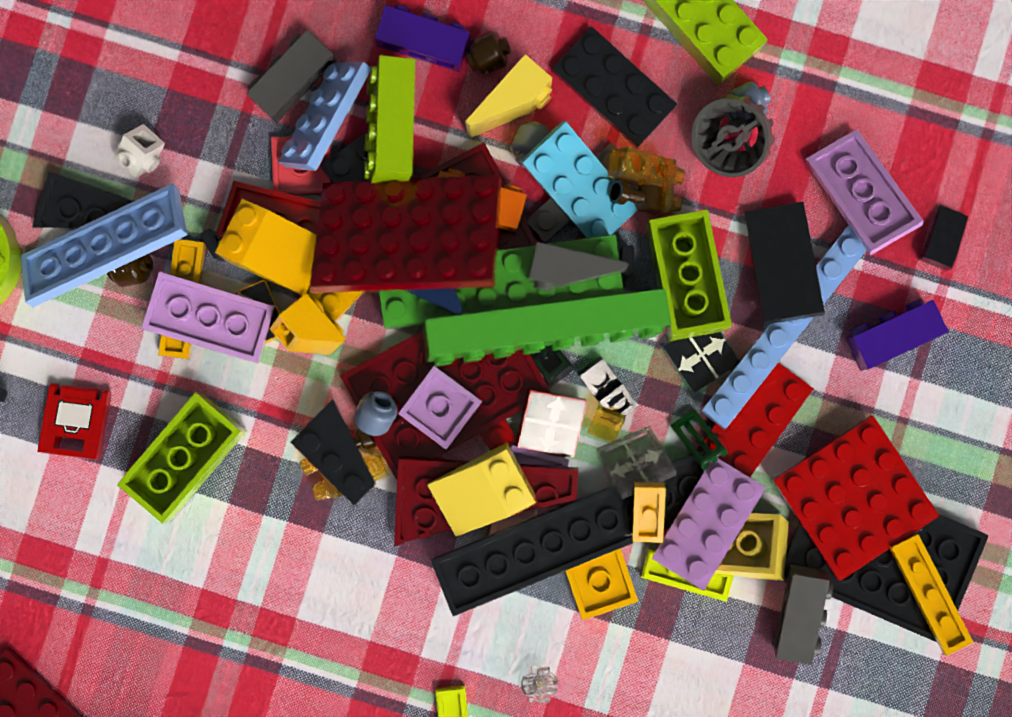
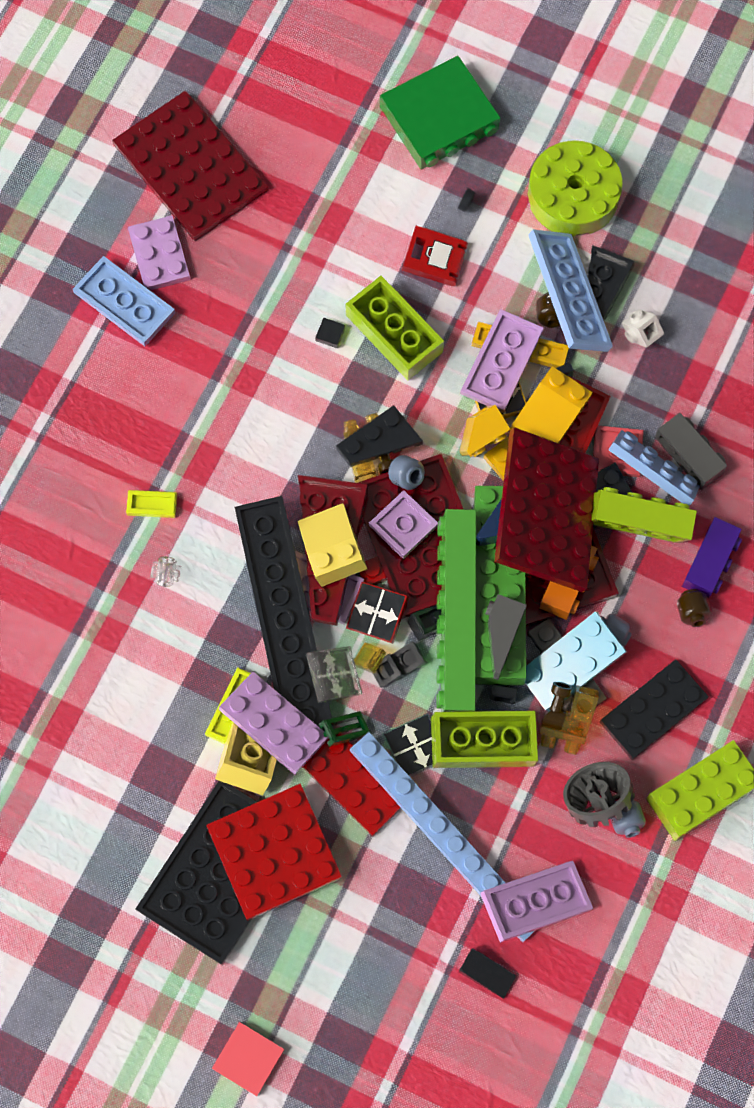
camera: 100 degrees right, 15 degrees down
(197, 536) = (330, 333): none -> black tile
(514, 97) = (654, 620): light yellow slope -> none
(602, 585) = (238, 634): yellow plate -> none
(648, 512) = (291, 672): yellow plate -> none
(784, 263) = (483, 823): black tile -> none
(802, 614) = (184, 790): dark grey brick -> none
(896, 333) = (409, 913): dark purple brick -> none
(931, 594) = (180, 900): yellow plate -> none

